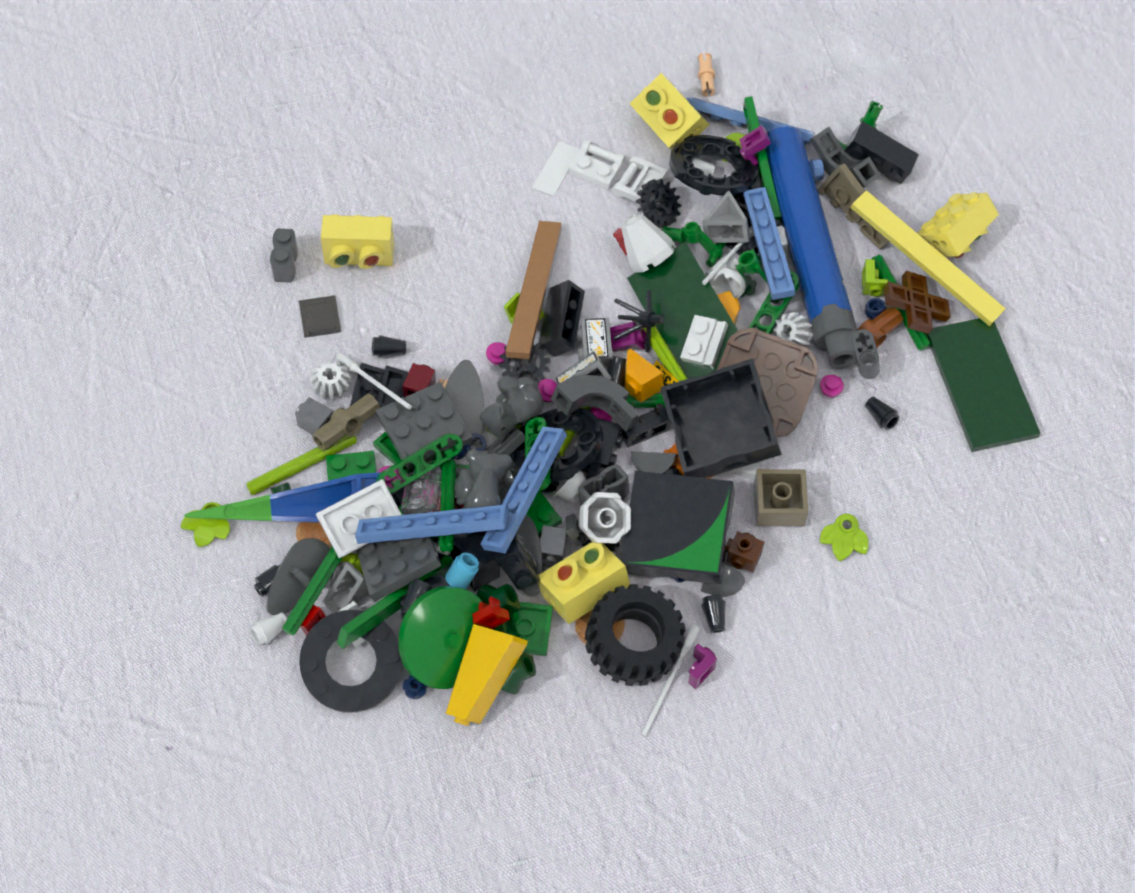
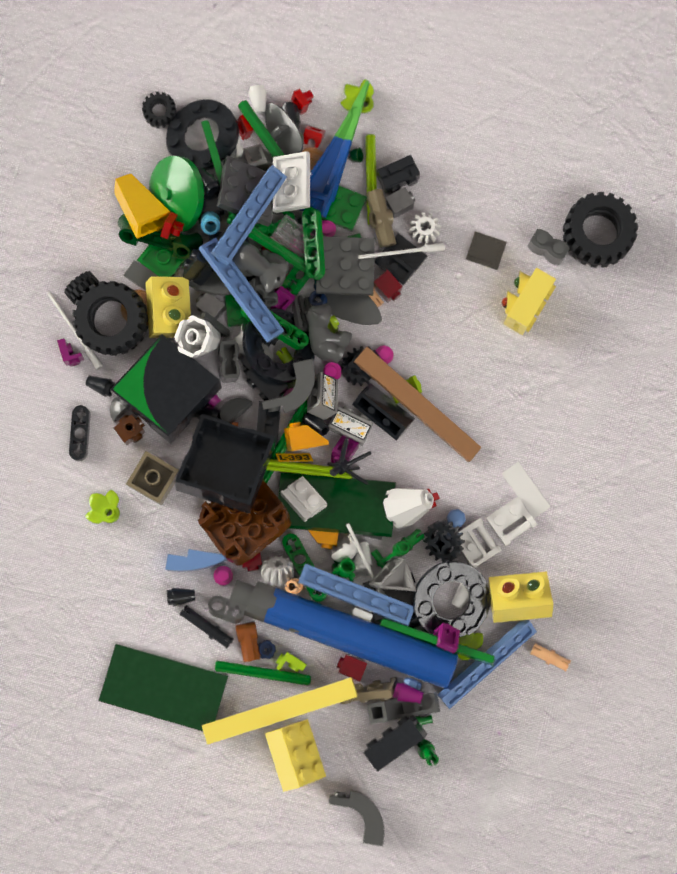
camera: 120 degrees right, 20 degrees up
(231, 192) = (610, 208): none -> black tyre
(245, 577) = (302, 100): none -> red tile
(280, 543) = (315, 134): none -> red tile
(281, 434) = (398, 174): none -> black brick
(344, 746) = (159, 99): none -> black tyre
(387, 346) = (431, 281): black cone -> none
(561, 638) = (139, 274): none -> dark grey slope
(618, 688) = (79, 285): none -> black tyre
(626, 208) = (456, 517): none -> medium blue tile
(787, 597) = (85, 419): none -> black beam
(799, 302) = (292, 589): none -> light nougat pin
(828, 158) = (406, 693): none -> magenta cone
(837, 417) = (194, 561): none -> medium blue slope
(839, 224) = (351, 667): none -> dark red brick
(893, 364) = (213, 631): none -> black pin
(917, 302) = (250, 680): reddish brown plate -> none
(966, 140) = (371, 815): none -> dark grey arch

